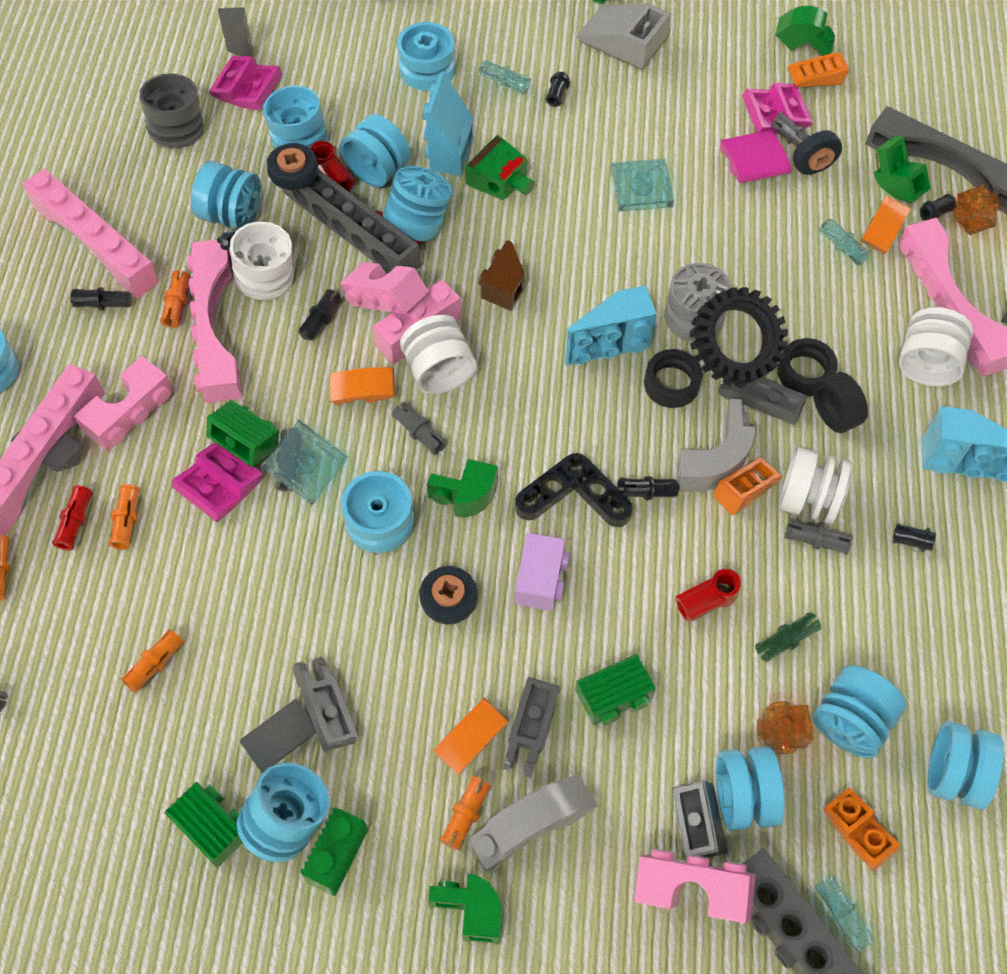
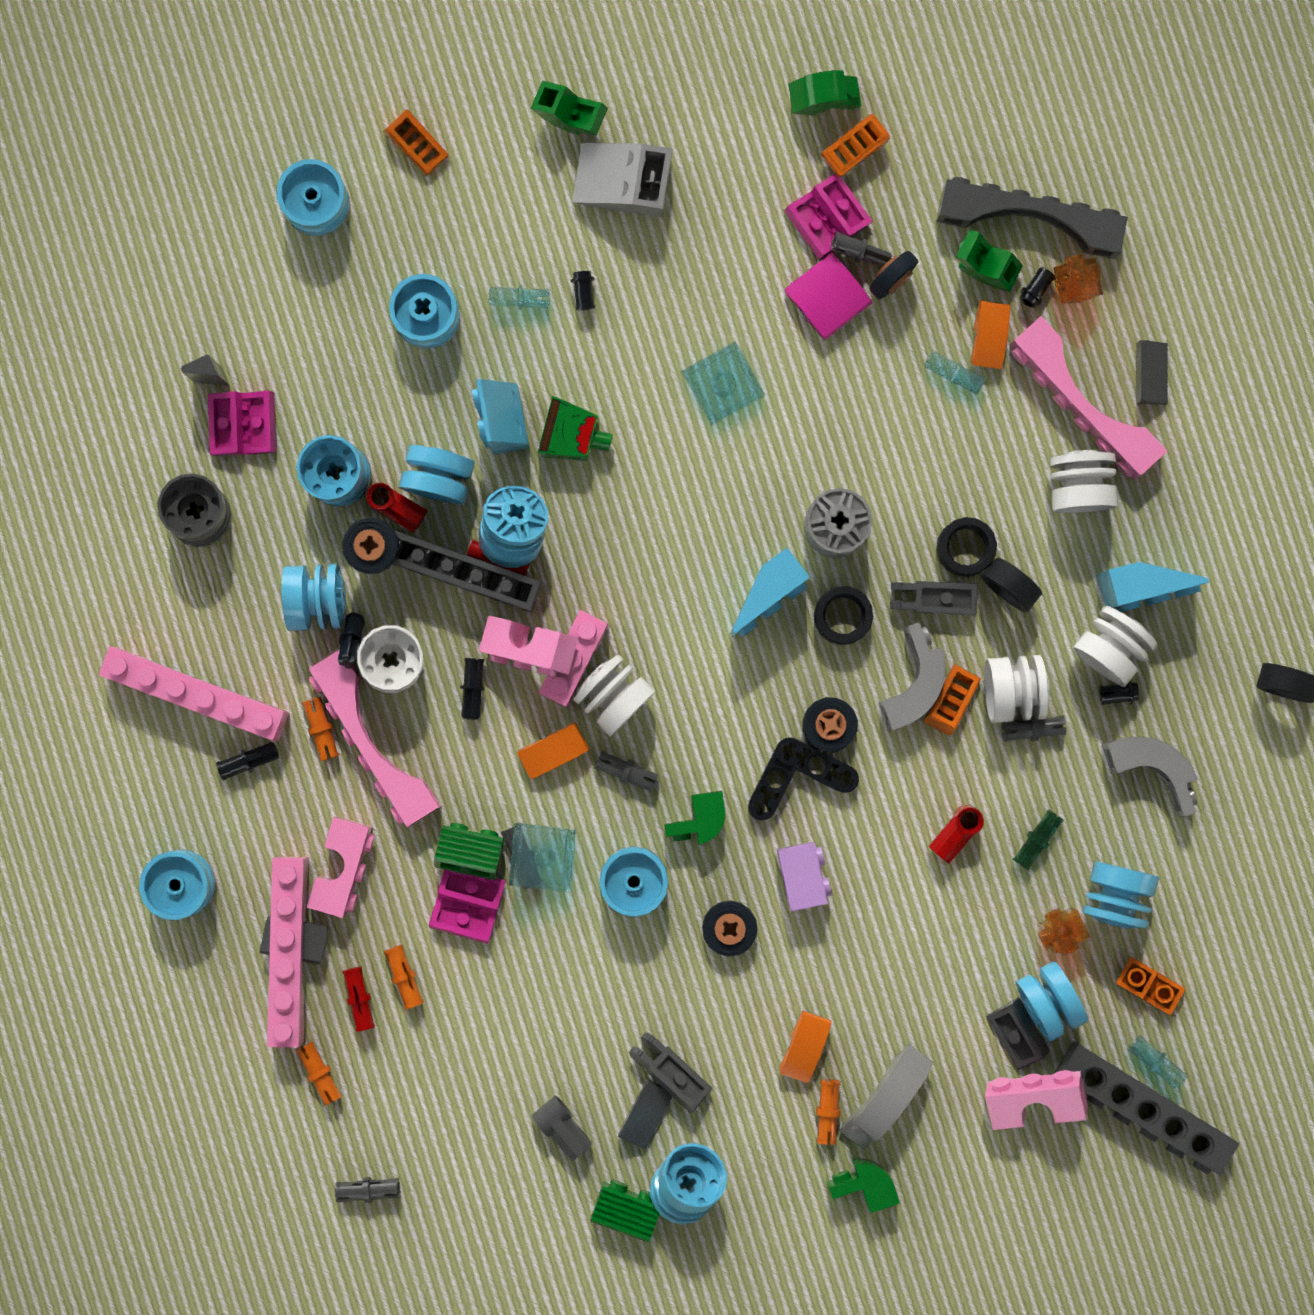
camera: 25 degrees left, 25 degrees up
(152, 661) = (504, 1097): orange pin -> none
(188, 705) = (556, 1121): none -> dark grey piece
(334, 851) = (740, 1190): green brick -> none
(504, 279) = (635, 568): reddish brown slope -> none
(531, 722) = (850, 1012): dark grey hinge -> none
(615, 690) = (909, 955): green brick -> none
(625, 448) = (837, 731): none -> black wheel
(647, 487) = (864, 748): black axle -> none
(767, 321) = (926, 572): black tyre -> none
(924, 485) = (1118, 641): none -> white wheel
(936, 604) = (1161, 757): none -> light grey arch
(965, 765) = (1220, 905): medium azure wheel -> none

